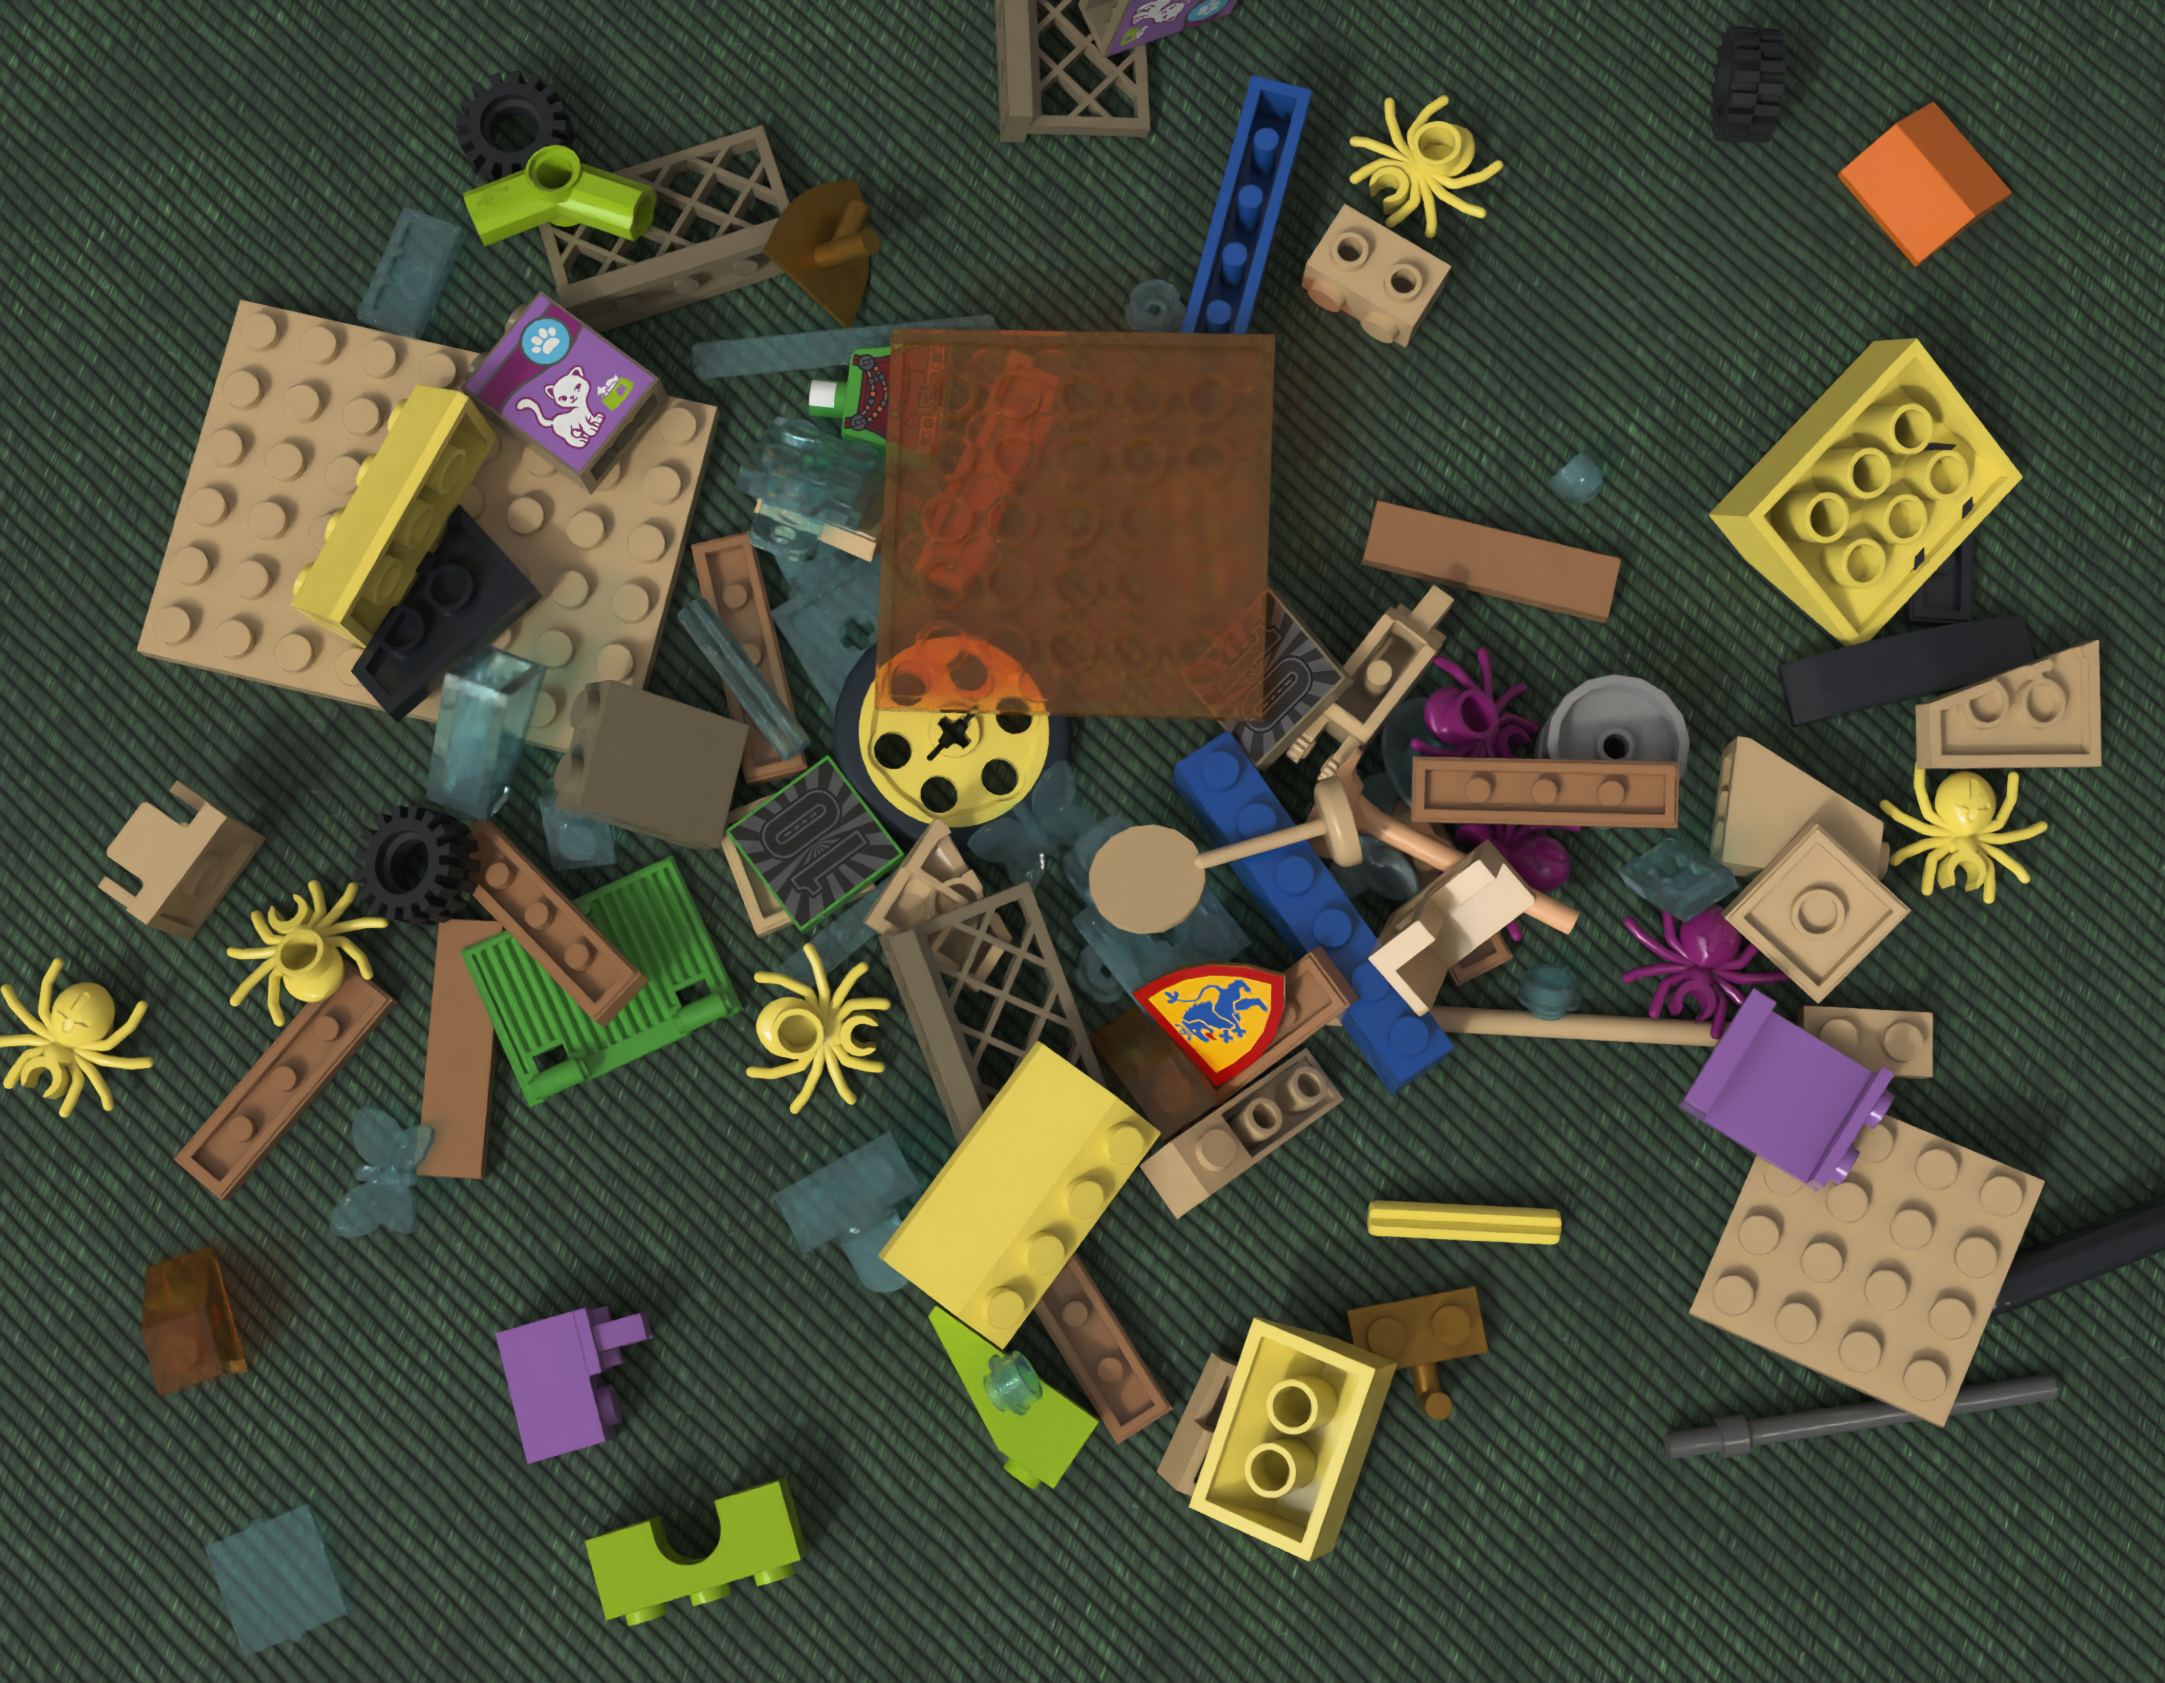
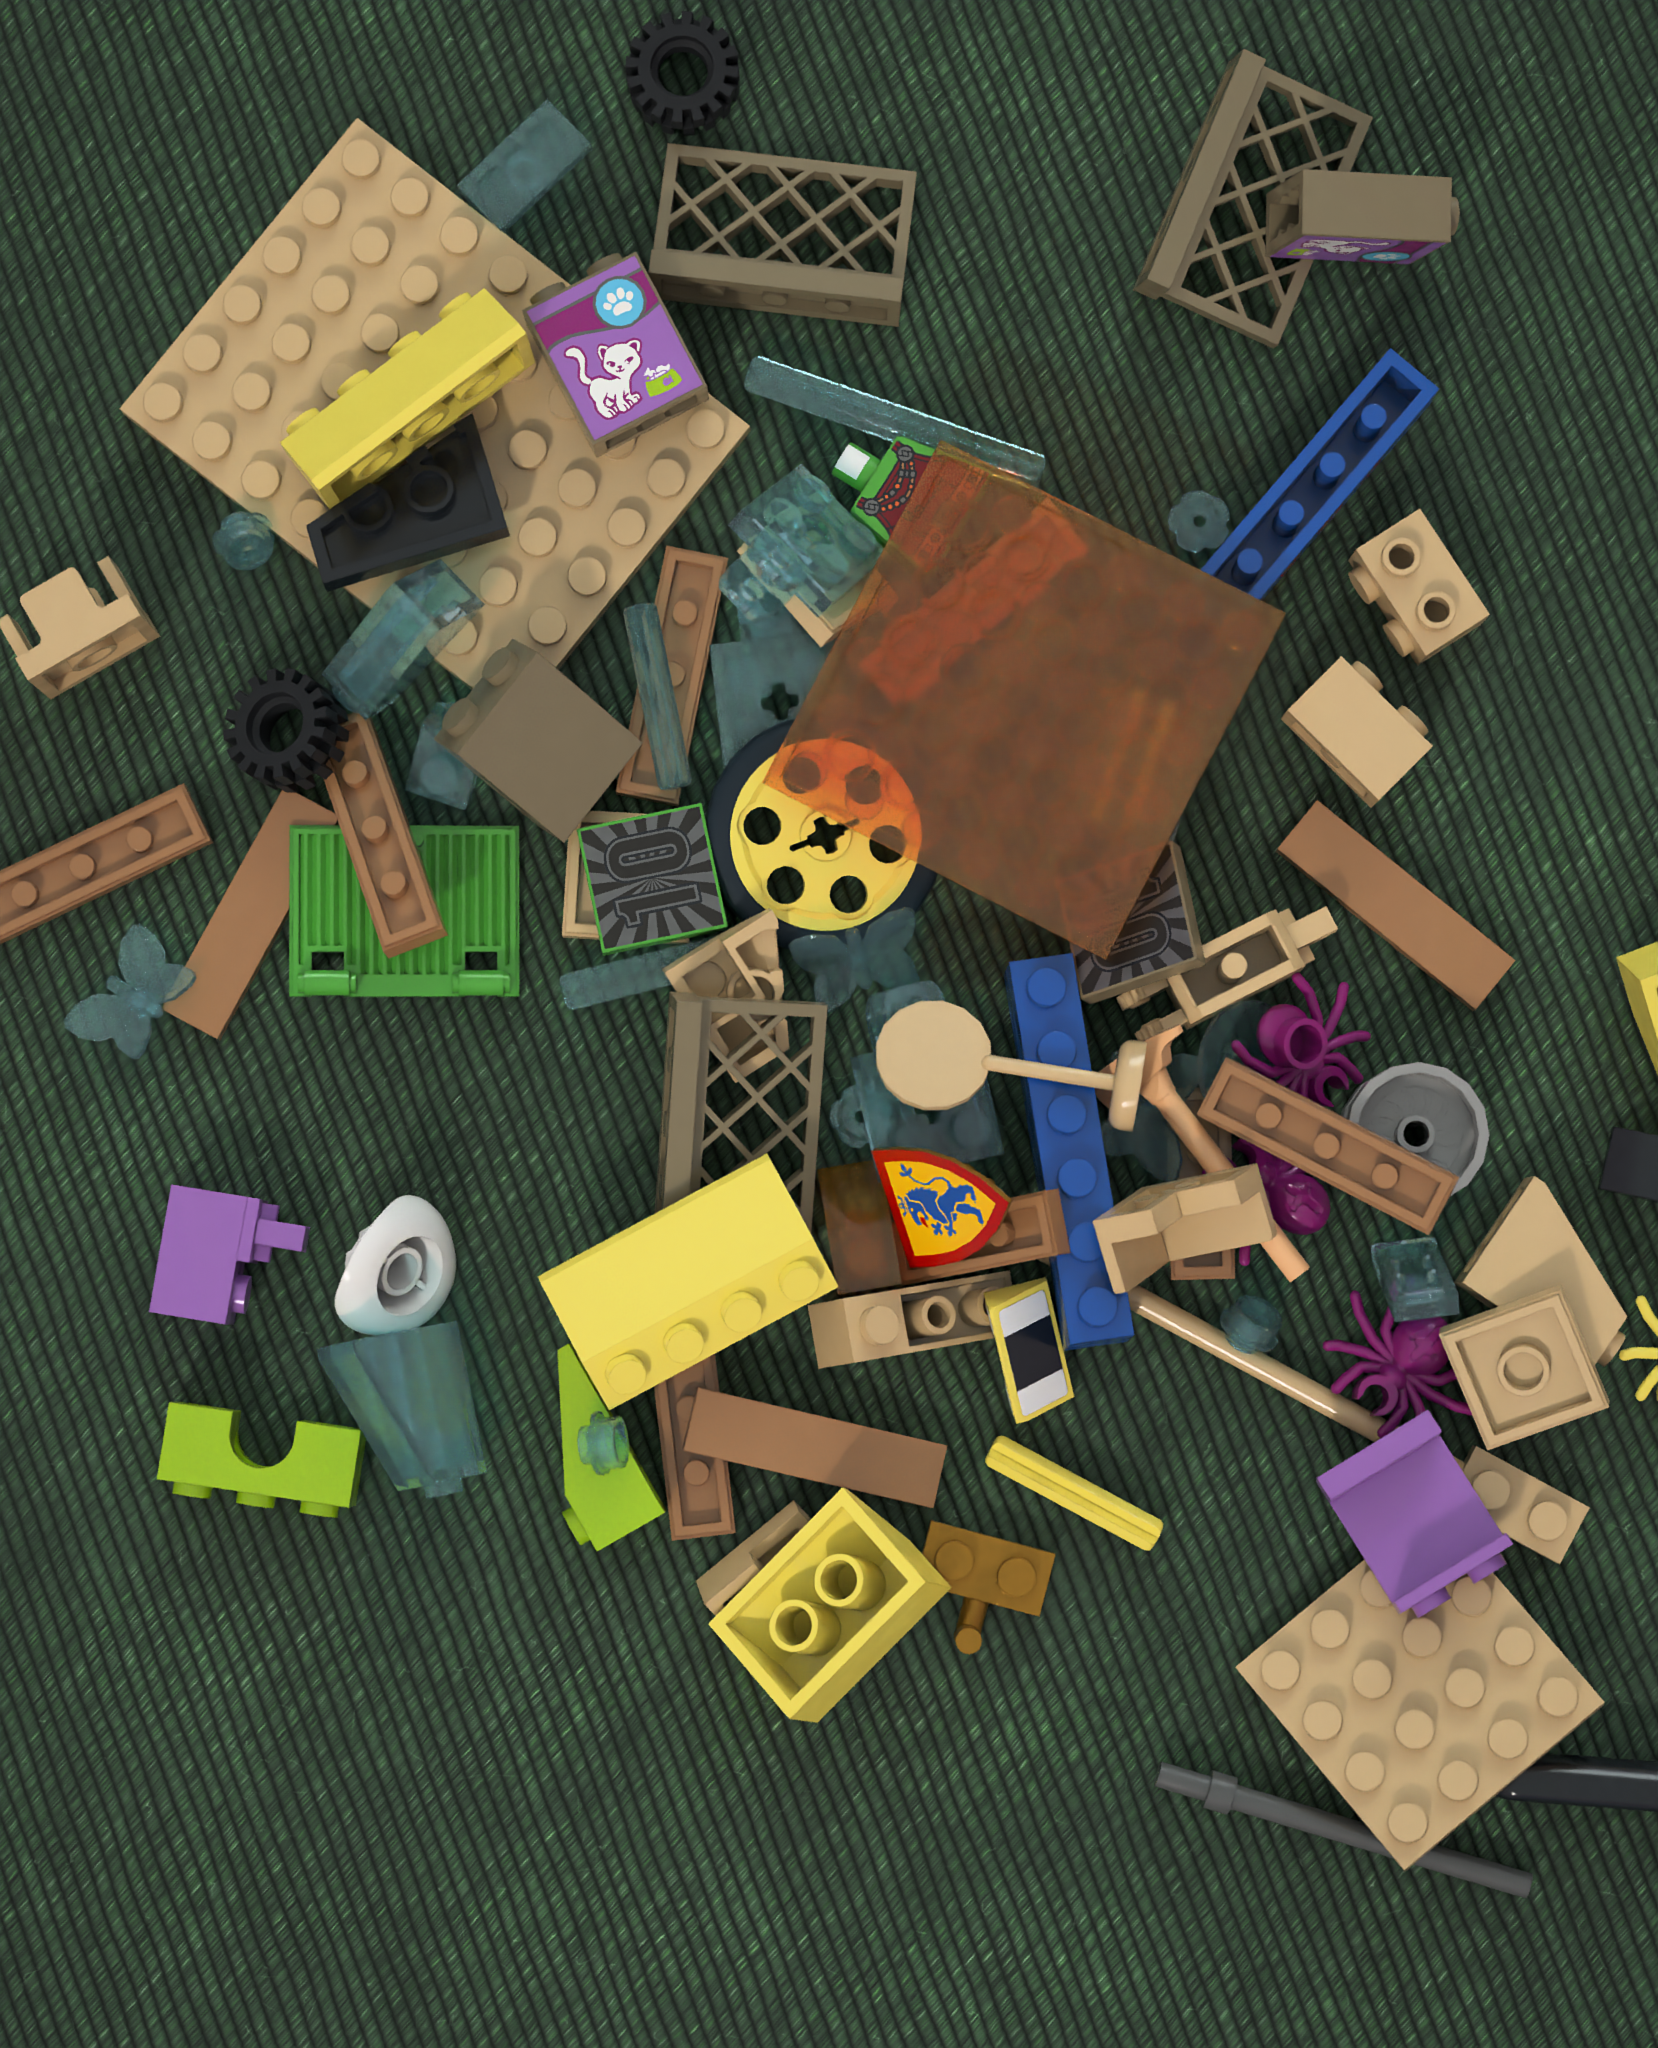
camera: 25 degrees right, 5 degrees up
(304, 950) = (152, 760): light yellow animal -> none
(315, 721) = (245, 551): none -> clear light blue plate
(586, 198) = (724, 177): lime piece -> none
(745, 1313) = (397, 1270): none -> white hat
(815, 1433) = (412, 1404): none -> clear light blue slope
(817, 1029) = (577, 1047): light yellow animal -> none
(826, 246) = (921, 322): pearl gold shield -> none
(856, 1206) = (538, 1222): clear light blue brick -> none
(1207, 1294) = (814, 1447): none -> medium nougat tile
(1359, 1108) = (1029, 1348): none -> slope
(1384, 421) = (1358, 730): none -> tan brick
(1429, 161) = (1516, 500): light yellow animal -> none
(1579, 479) = (1513, 868): clear light blue hinge -> none

